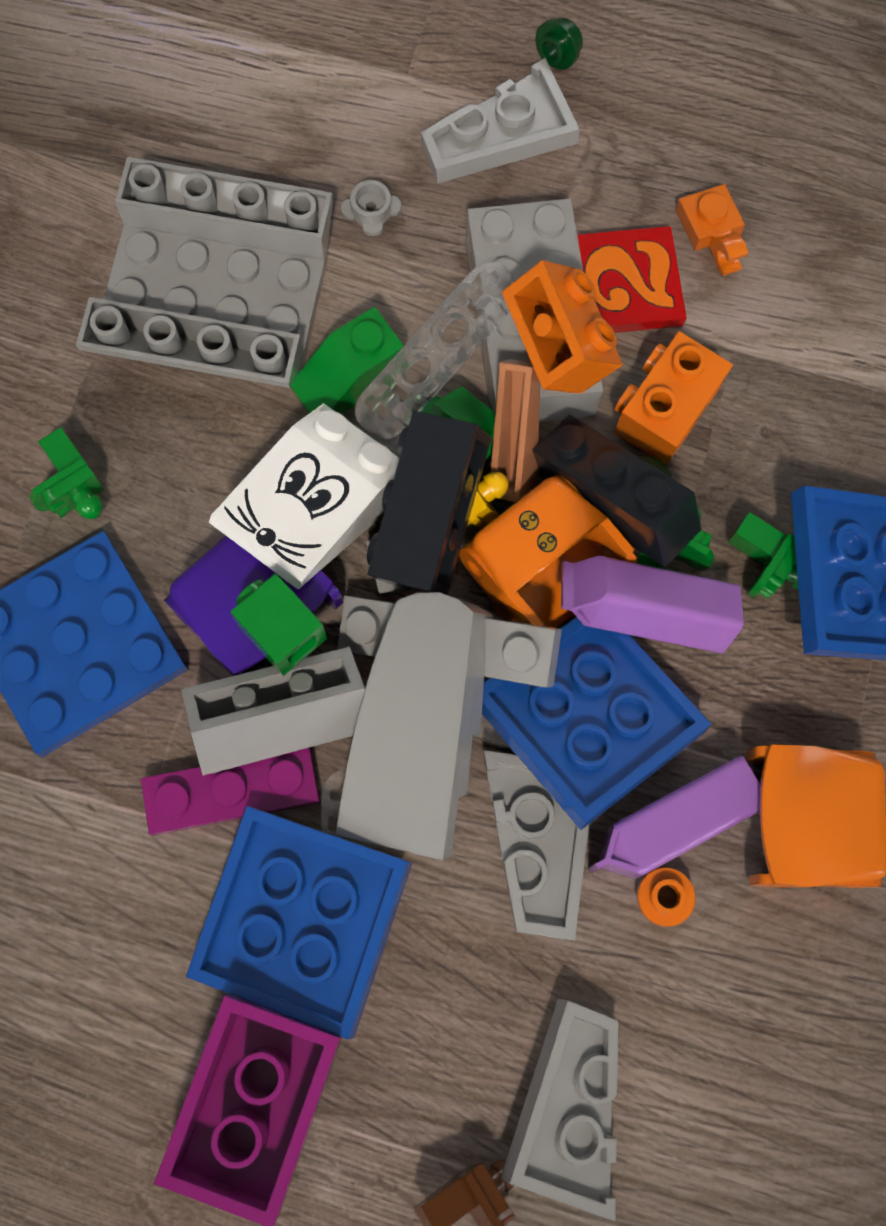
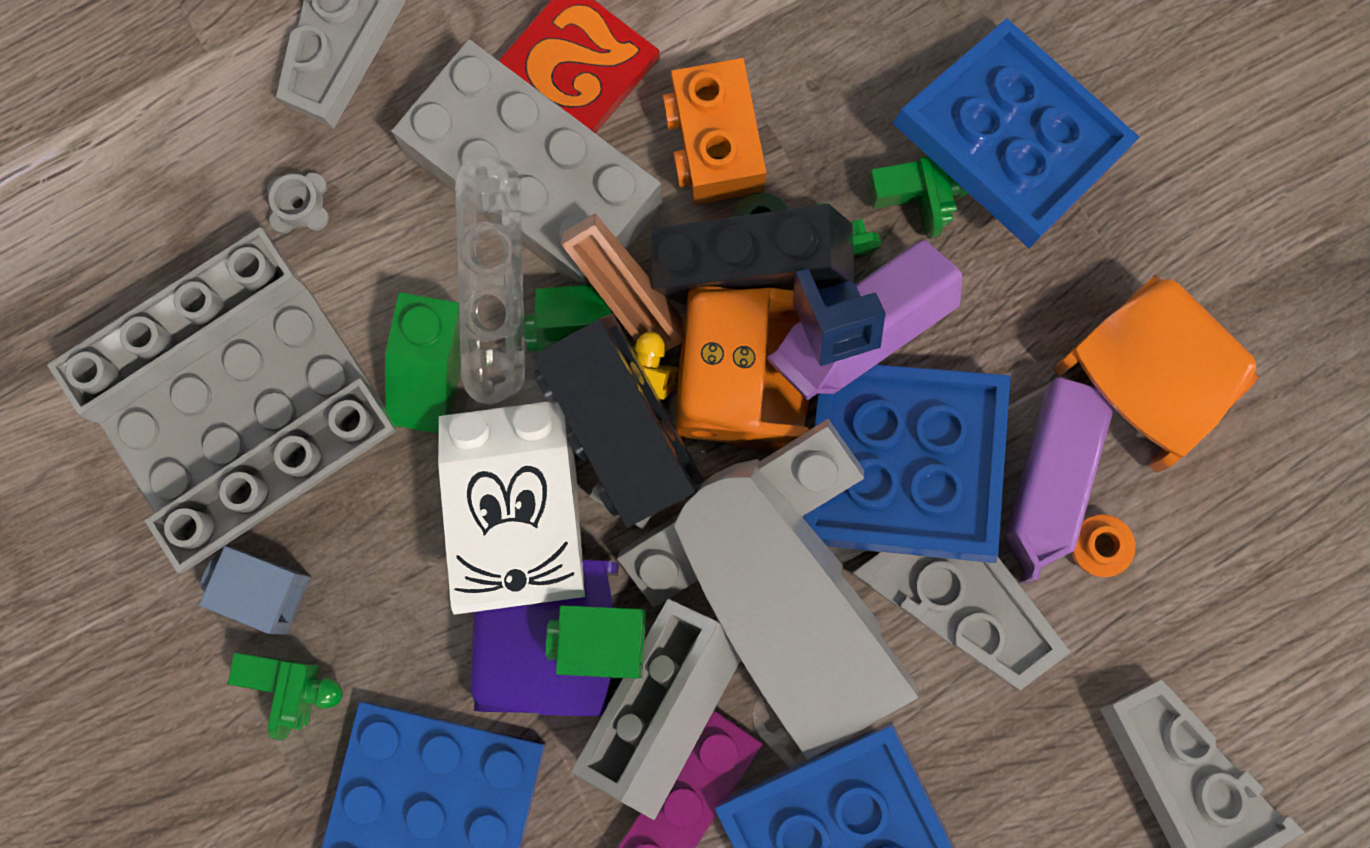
camera: 35 degrees left, 5 degrees up
(110, 404) = (253, 590): none -> sand blue brick
(562, 327) = (584, 165): orange brick -> none
(628, 573) = (837, 318): none -> dark blue panel

